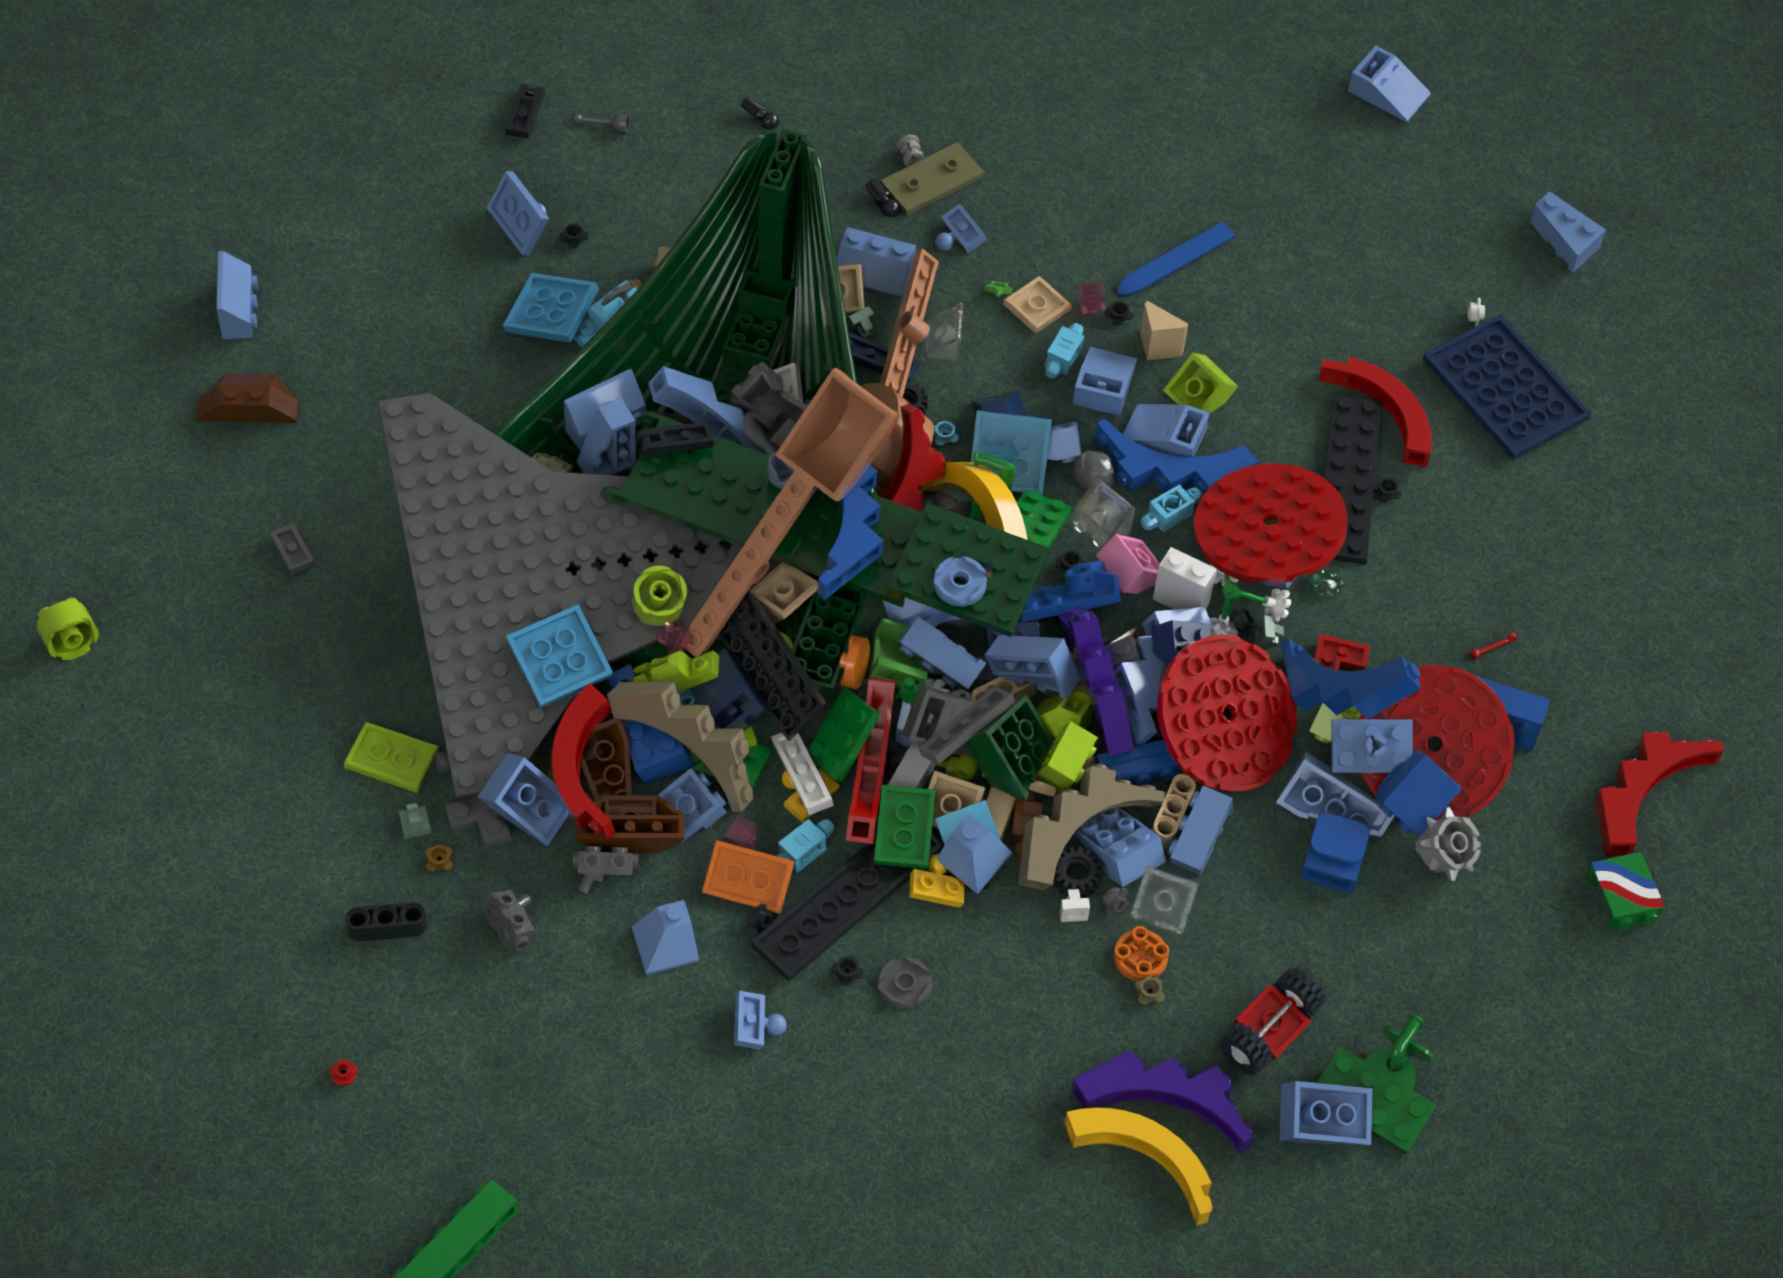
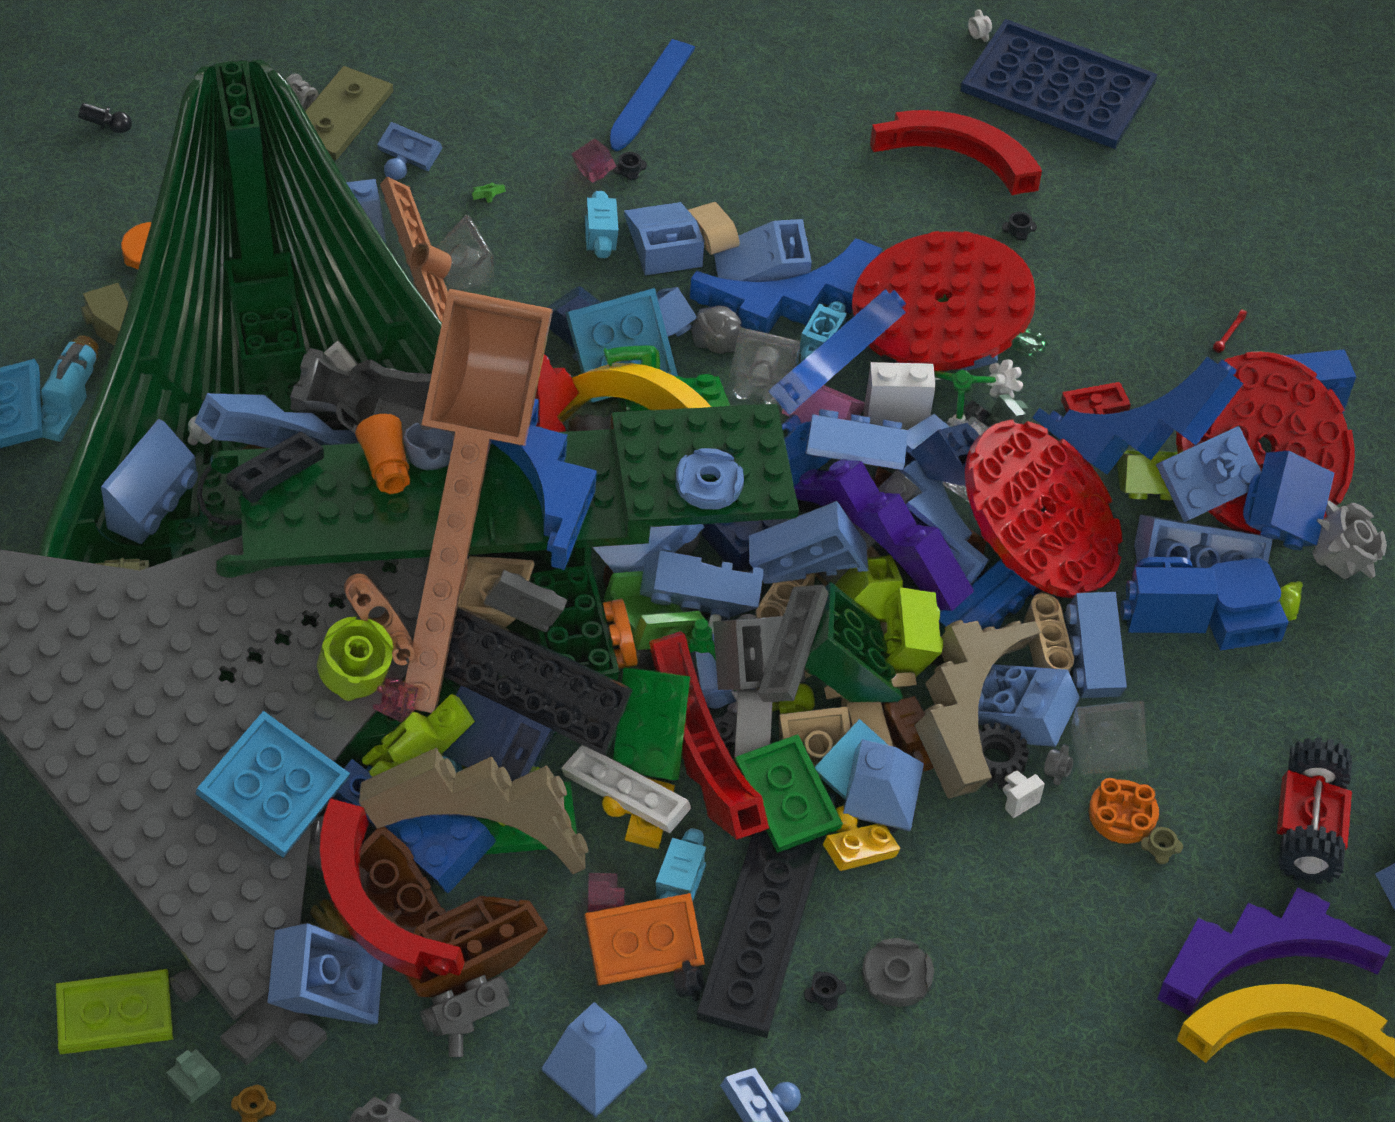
camera: 30 degrees left, 5 degrees down
(610, 441) = (180, 509): medium blue wedge -> none
(683, 556) = (363, 597): none -> nougat connector
(695, 800) = (520, 877): medium blue plate -> none
(752, 462) = (384, 449): none -> orange plant
(796, 615) = (525, 601): none -> dark grey plate
(1037, 304) = (538, 192): tan tile -> none
(1117, 601) = (857, 440): none -> medium blue slope
(1141, 390) = (716, 228): none -> tan beam
(1149, 529) = (838, 351): none -> blue arch
(1162, 333) = (692, 164): tan slope -> none
(1200, 384) = (764, 199): lime slope -> none
(1279, 820) = (1169, 596): none -> blue brick
(1352, 467) = (958, 201): black plate -> none
(1374, 865) = (1291, 599): none -> lime piece

